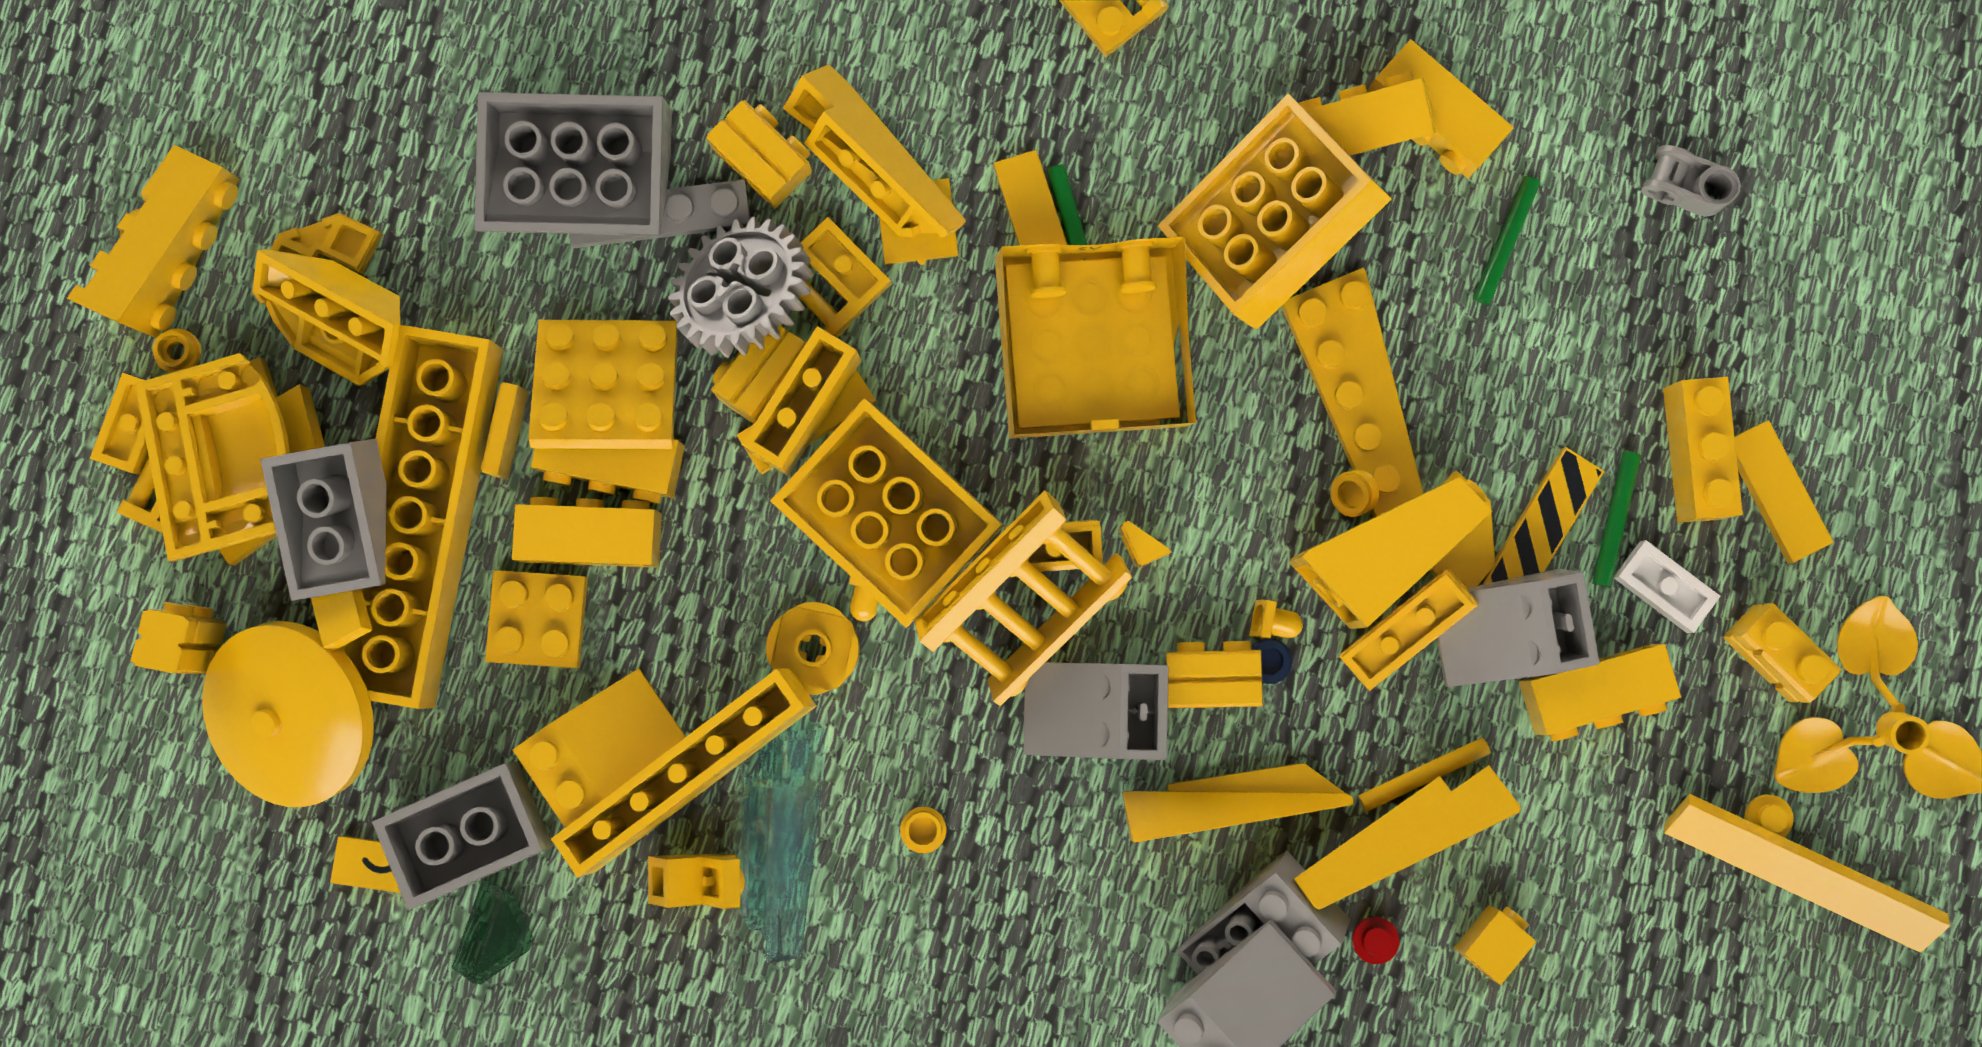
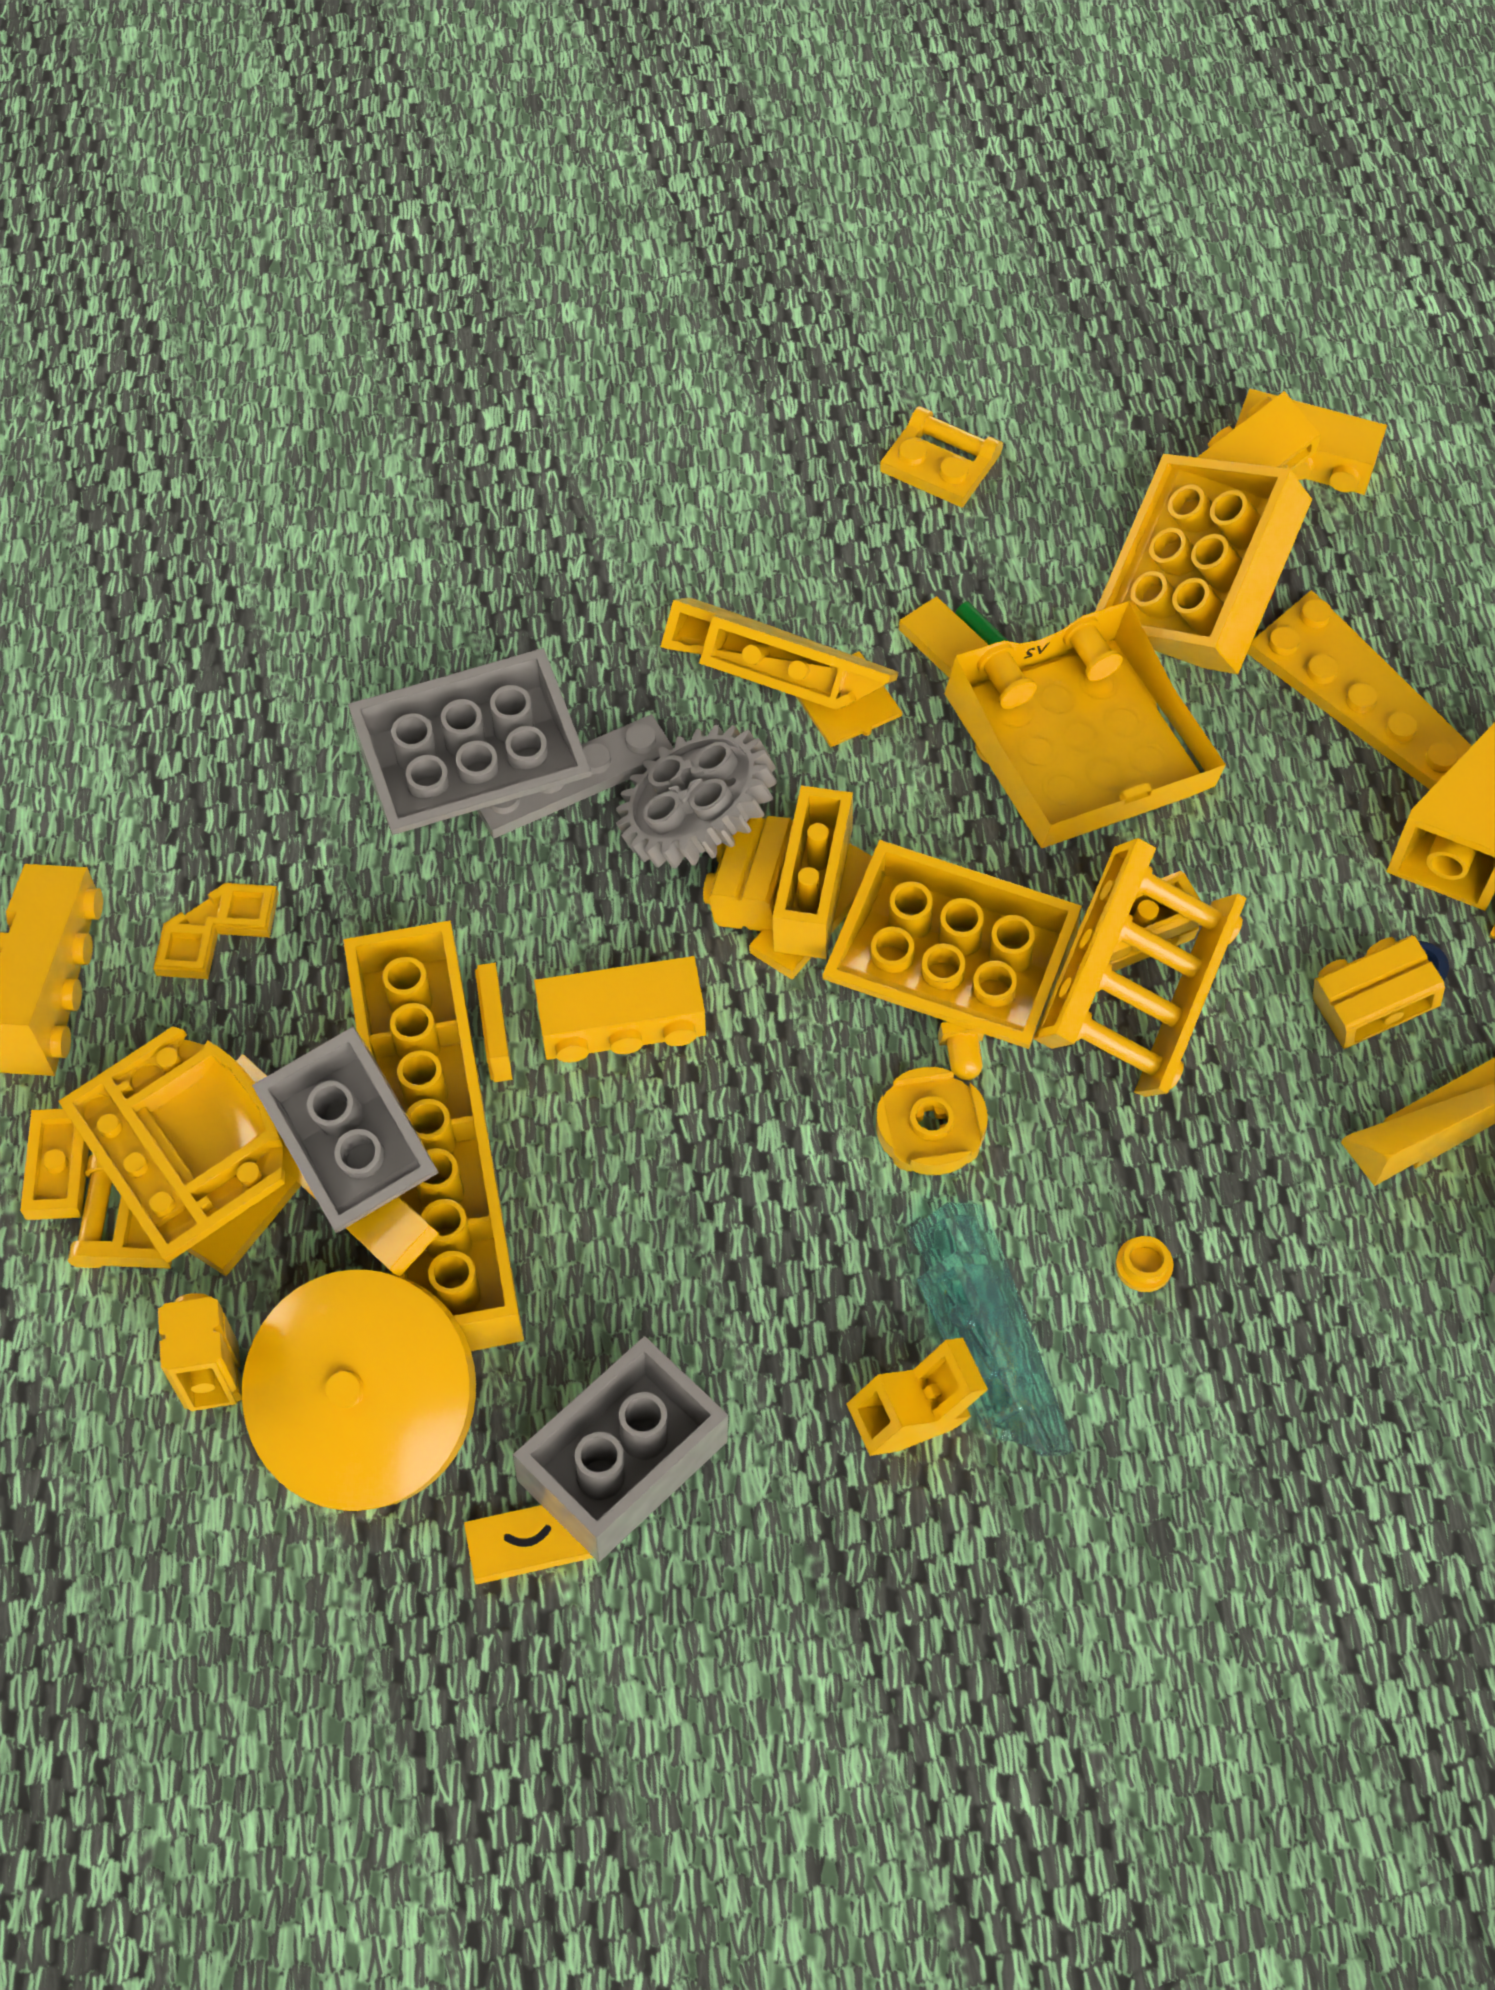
camera: 20 degrees left, 25 degrees down
(167, 341) = (77, 1063): yellow plate -> none
(329, 313) = (259, 971): yellow wedge -> none
(493, 934) = (695, 1562): clear green slope -> none
(536, 619) = (605, 1205): yellow plate -> none
(587, 533) = (630, 1092): yellow brick -> none
(598, 746) = (738, 1309): yellow slope -> none
(604, 384) = (589, 934): yellow plate -> none
(683, 772) = (851, 1281): yellow brick -> none
(760, 152) = (653, 681): yellow brick -> none
(846, 272) = (798, 760): yellow plate -> none
(1097, 711) = (1275, 1065): light grey slope -> none
(1140, 545) = (1221, 884): yellow slope -> none
(1269, 621) = (1400, 923): yellow piece -> none
(1354, 493) = (1415, 777): yellow tile -> none
(1506, 240) = (1432, 529): green bar -> none

